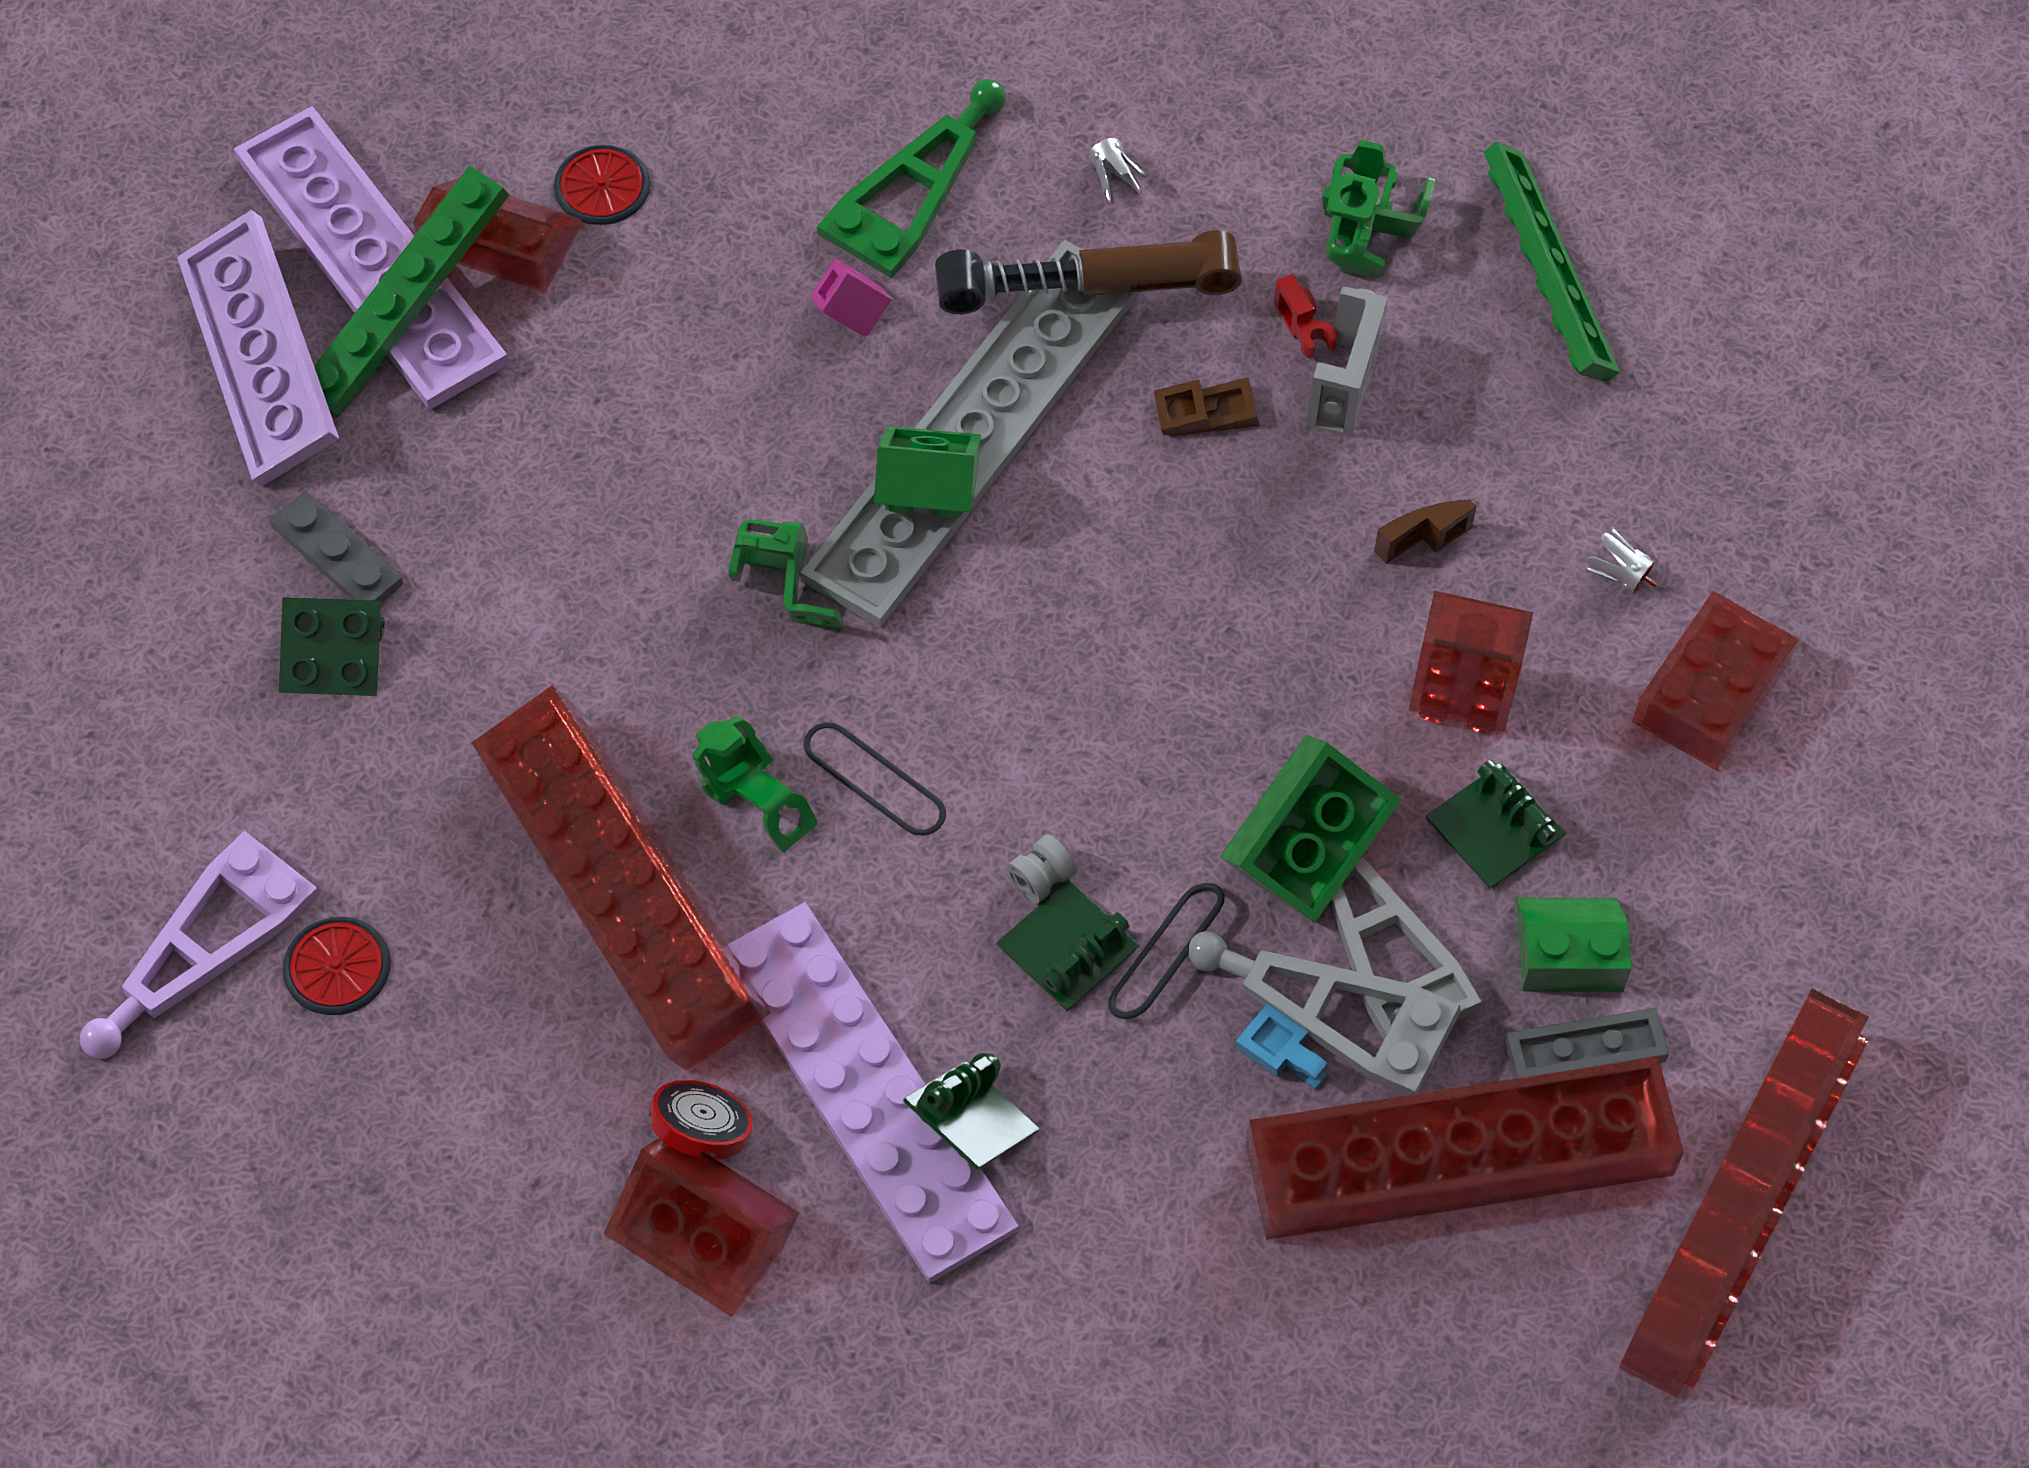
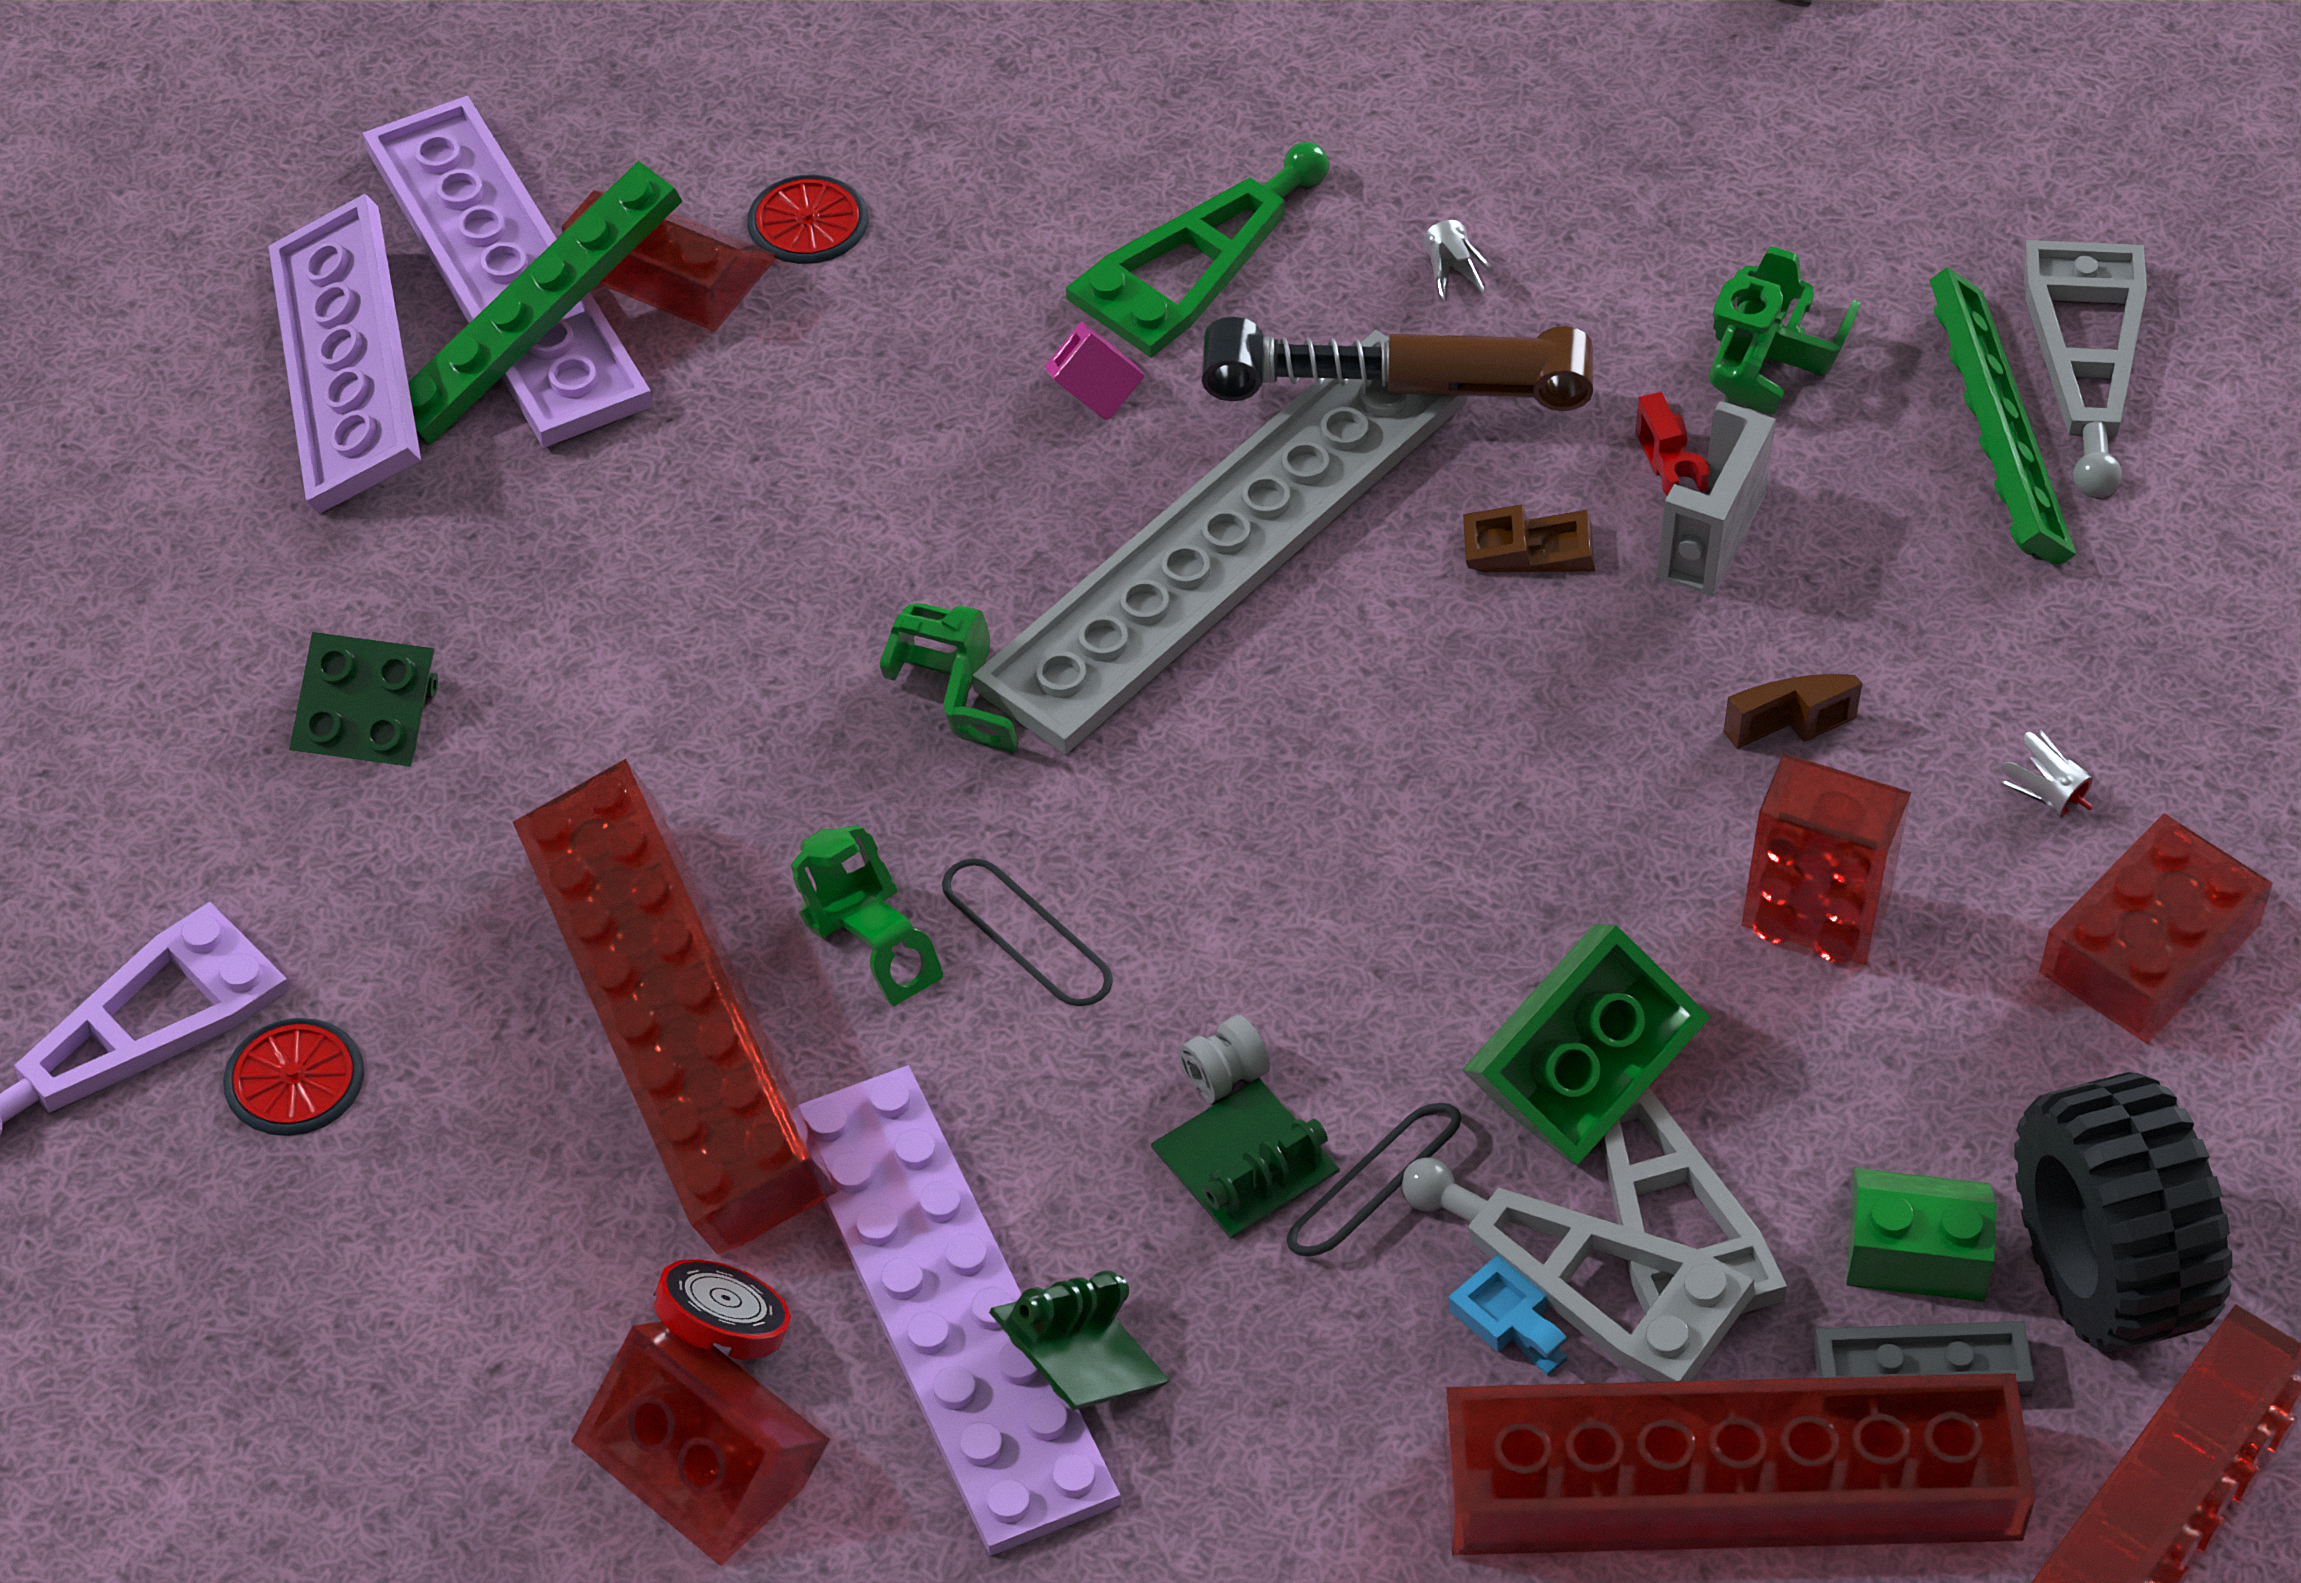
camera: 10 degrees right, 10 degrees down
(335, 550) = (393, 592): dark grey plate -> none
(927, 470) = (1151, 570): green slope -> none
(1495, 824) = (1838, 1073): dark green hinge -> none
(1598, 131) = (2087, 275): none -> light grey plate
(1722, 923) = (2123, 1212): none -> black tyre

